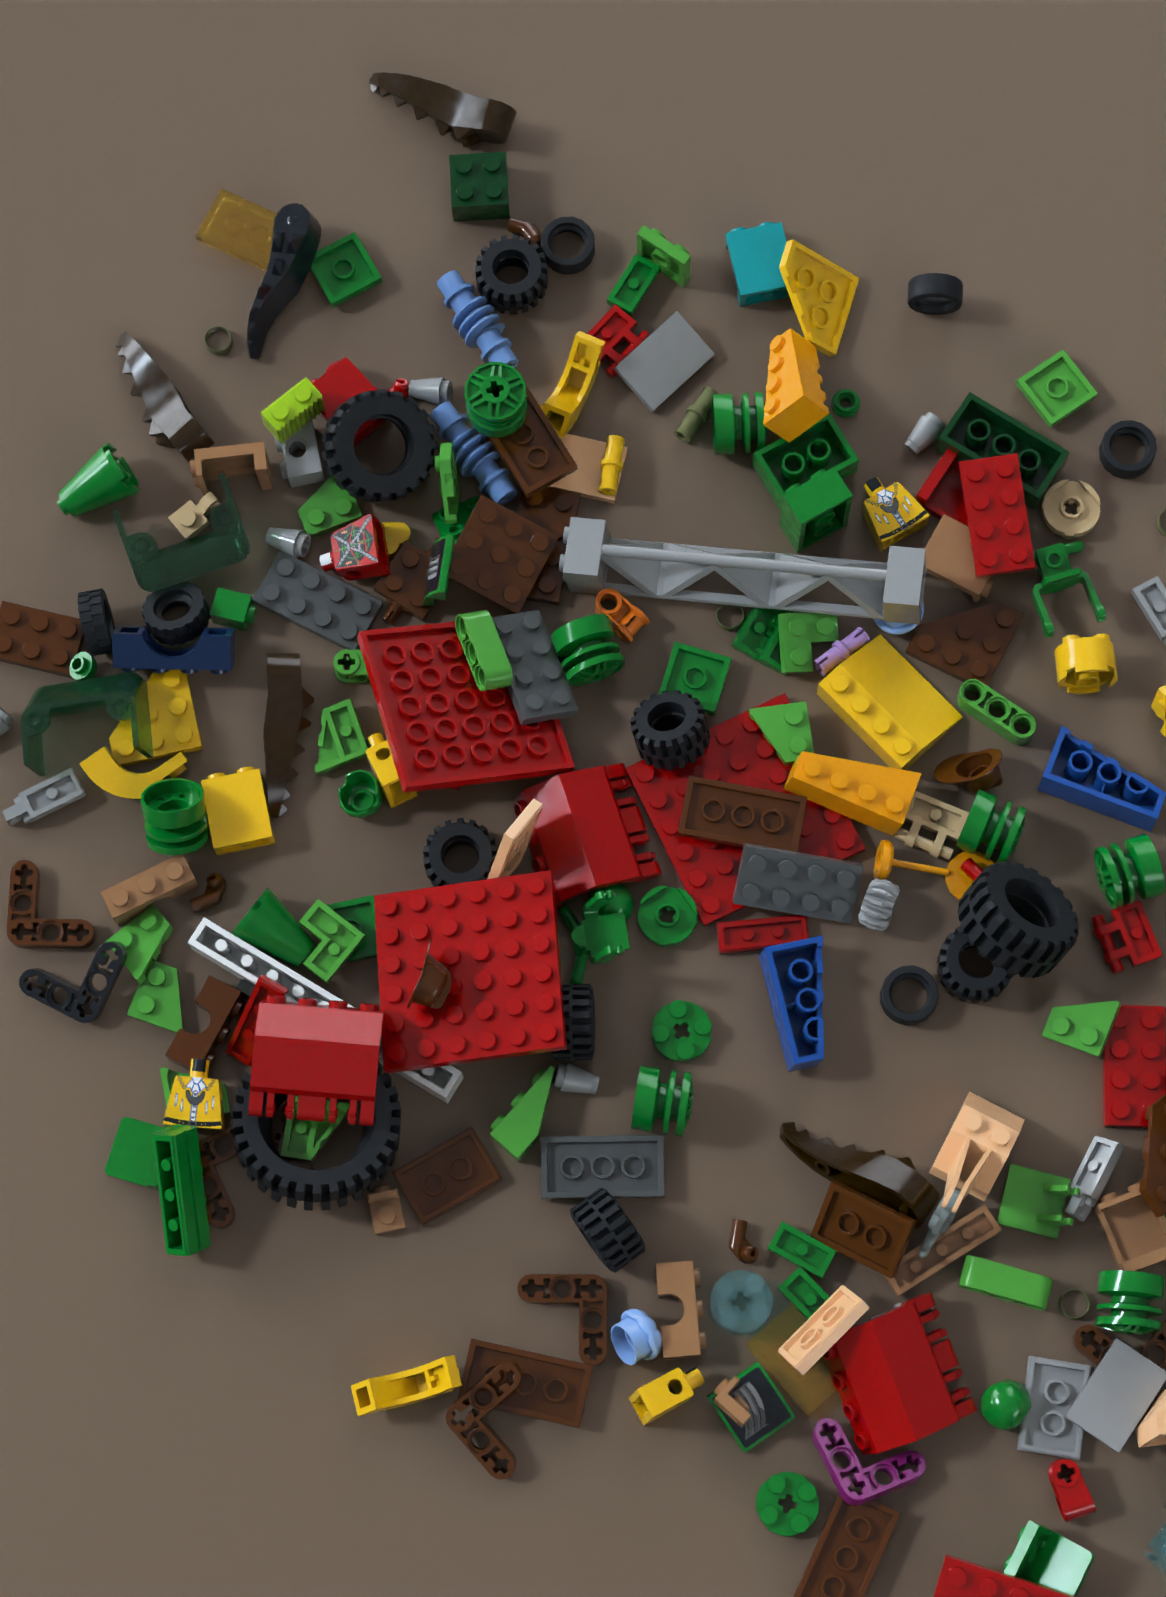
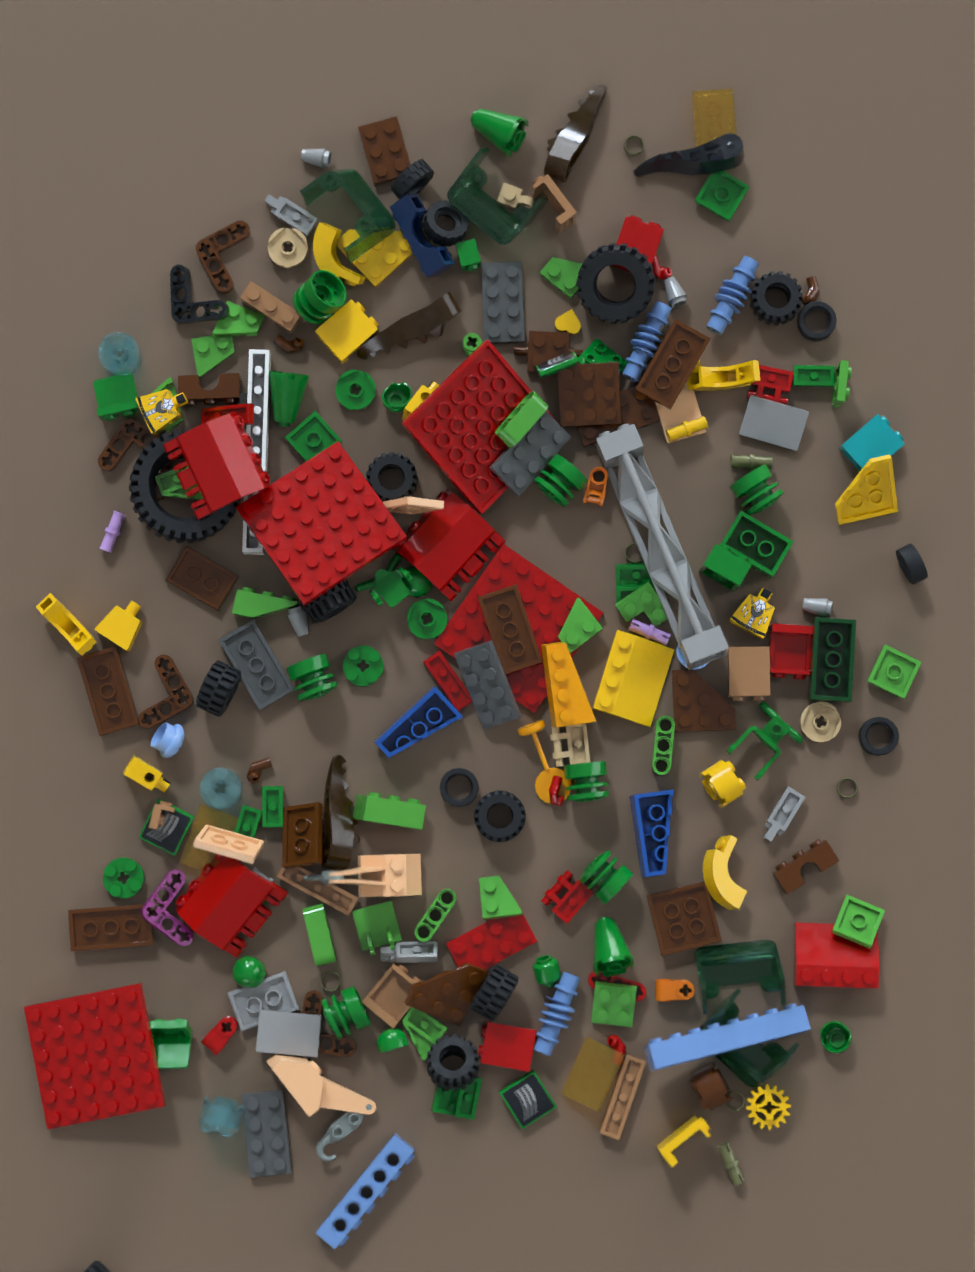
camera: 55 degrees right, 10 degrees up
(70, 818) = (289, 236): none -> tan plate
(82, 1101) = (109, 350): none -> clear light blue brick
(83, 666) = (382, 188): green plate -> none
(181, 1190) = (104, 431): green brick -> none
(290, 541) = (530, 263): light grey cone -> none
(293, 410) = (608, 218): lime brick -> none
(304, 469) = (583, 247): light grey brick -> none
(317, 1258) = (112, 531): none -> lavender pin
(324, 860) = (352, 401): none -> green plate
(337, 938) = (301, 435): bright green plate -> none
(340, 738) = (426, 365): bright green wing -> none
(358, 550) = (546, 308): torso -> none
(386, 1210) = (162, 555): medium nougat bracket -> none
(432, 985) = (298, 506): reddish brown piece -> none
(449, 482) = (618, 338): bright green wing -> none
(449, 1316) = (121, 625): none -> yellow torso
(466, 115) = (864, 202): dark brown animal -> none
(476, 1423) = (69, 676): reddish brown beam -> none
(479, 186) = (823, 245): dark green brick -> none
(492, 414) = (680, 348): green wheel -> none
(675, 746) = (548, 548): black tyre -> none
(679, 1282) = (214, 747): medium nougat arch -> none
(696, 673) = (582, 553): green plate -> none
(793, 387) = (795, 510): light orange wedge -> none
(845, 395) = (817, 548): green plate -> none
(879, 904) = (502, 739): light grey gear -> none
(891, 1100) = (389, 810): none -> bright green wedge
(972, 770) = (618, 750): reddish brown piece -> none
(996, 515) = (784, 679): red plate -> none
(1018, 919) = (516, 824): black tyre -> none
(1060, 1101) = (428, 922): none -> bright green beam

